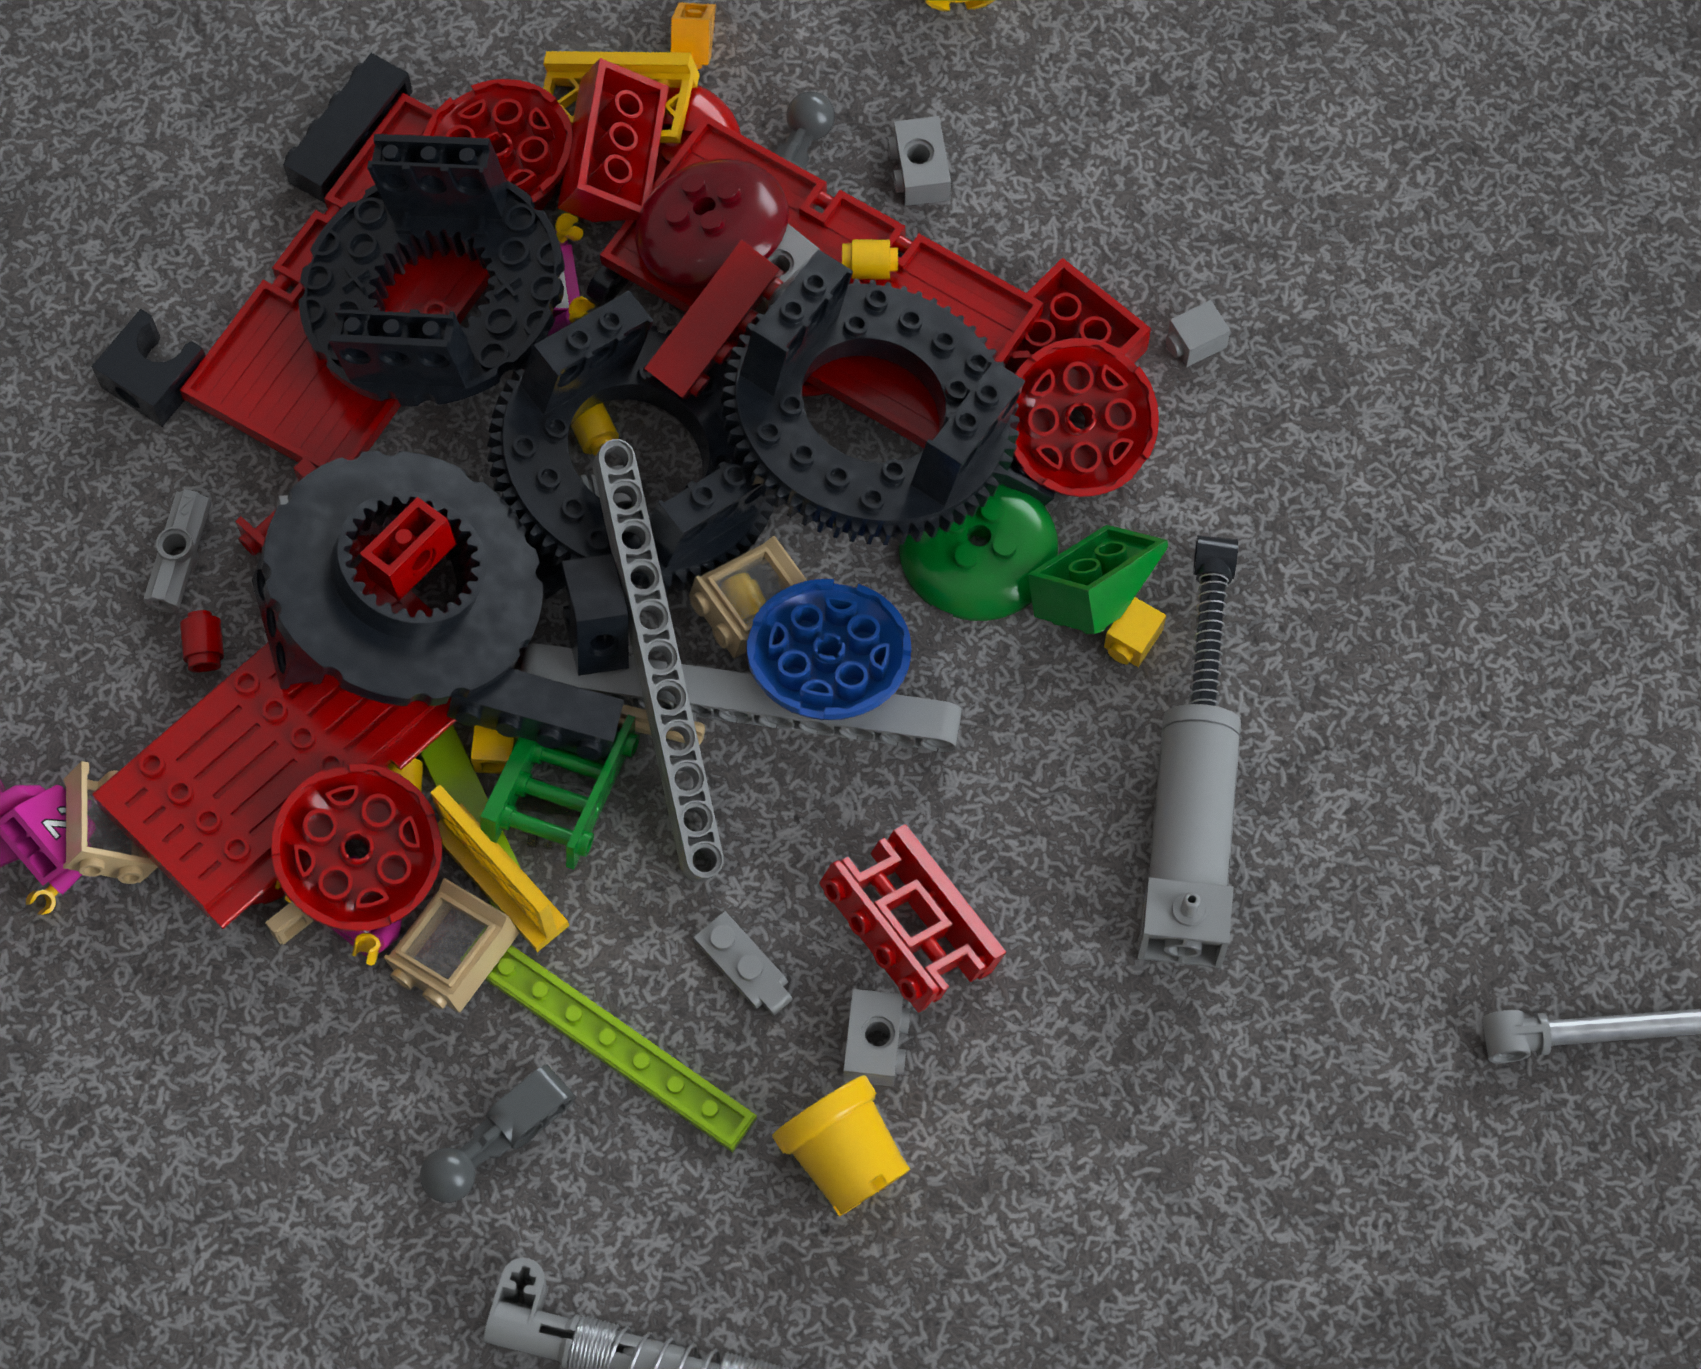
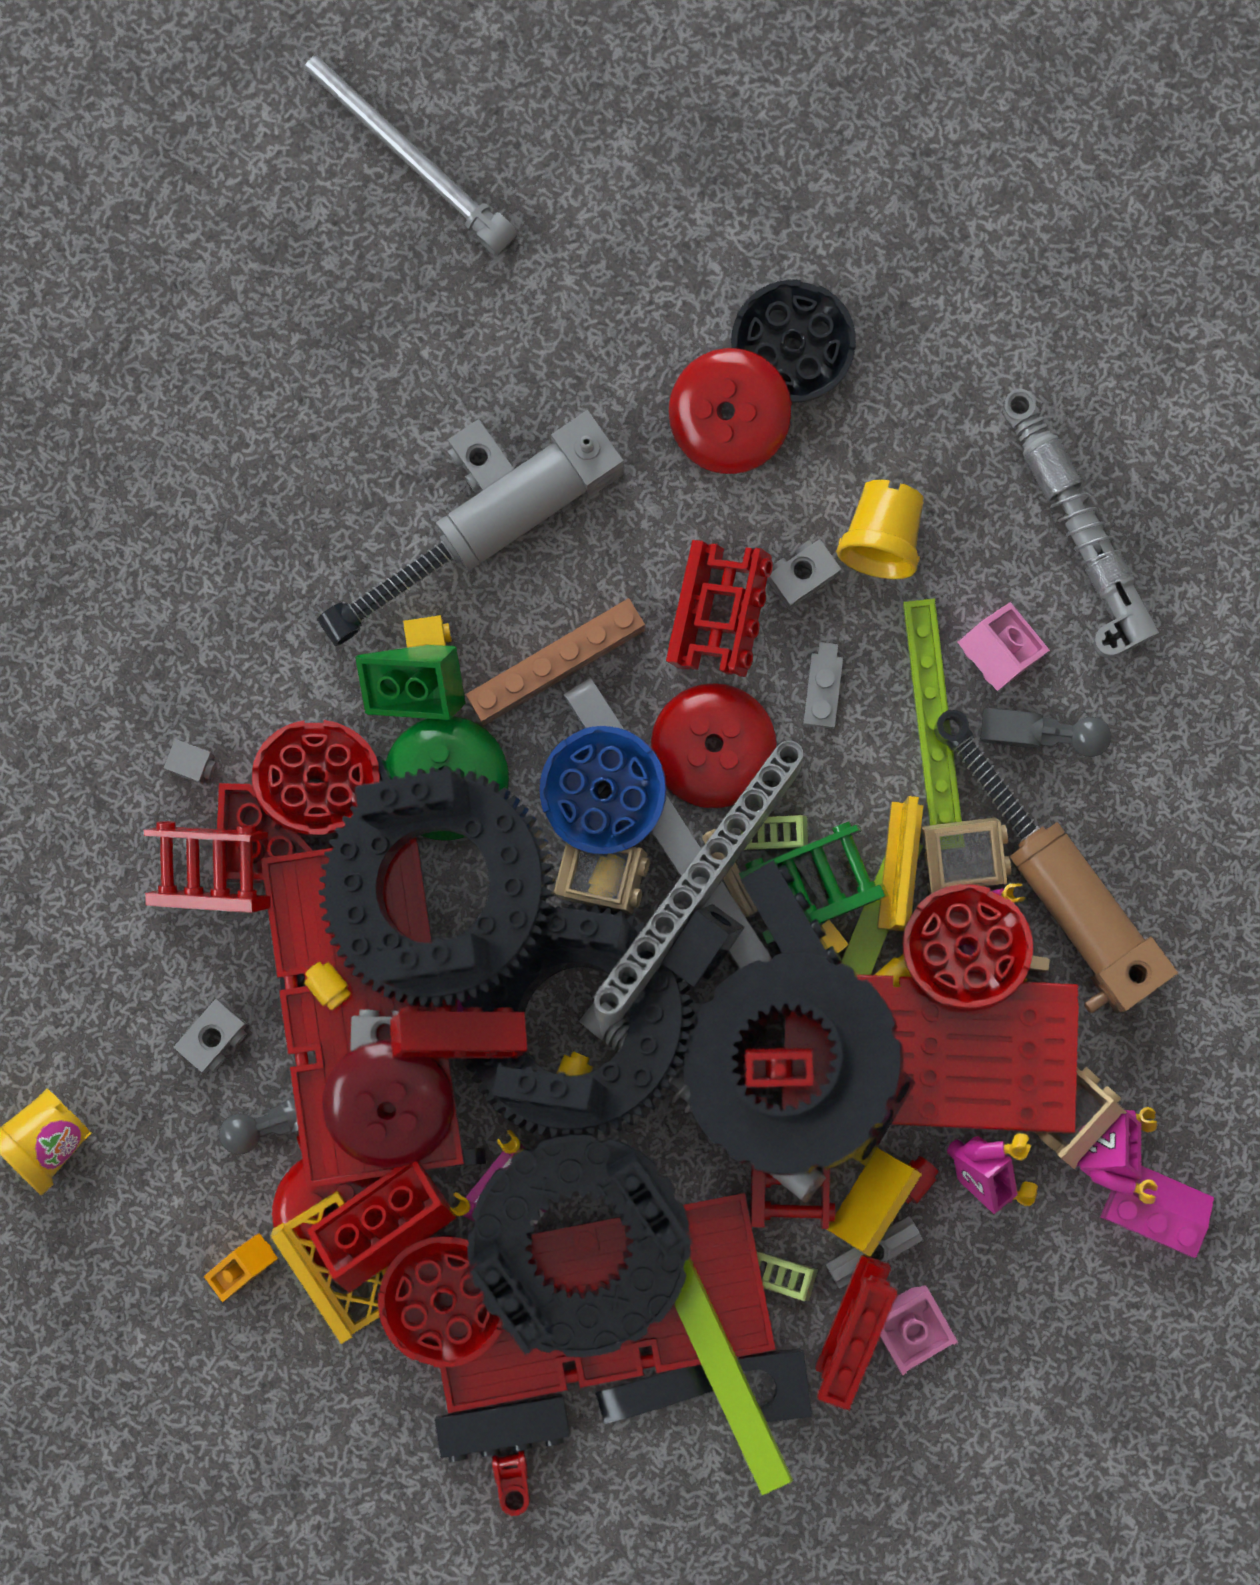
camera: 130 degrees left, 15 degrees up
(79, 524) = (915, 1329): none -> bright pink slope
(121, 452) = (855, 1332): none -> red fence
(136, 698) = (989, 1171): none -> dark pink torso
(191, 322) = (730, 1384): none -> lime tile
(199, 1002) = (1070, 890): none -> medium nougat piece
(218, 581) = (874, 1201): none -> yellow tile
(232, 476) = (808, 1282): none -> yellowish green slope
(243, 274) = (652, 1393): none -> black slope
(299, 100) = (511, 1480): none -> red piece
(618, 1173) = (1003, 646): none -> bright pink slope
(626, 813) = (801, 830): none -> yellowish green slope
(792, 847) = (705, 712): none -> red brick
(998, 727) = (556, 662): none -> nougat brick
(1068, 228) = (193, 894): none -> red fence
(1104, 1137) = (759, 419): none -> red brick
(1138, 1192) = (803, 313): none -> black brick
(1293, 842) = (476, 440): none -> light grey brick

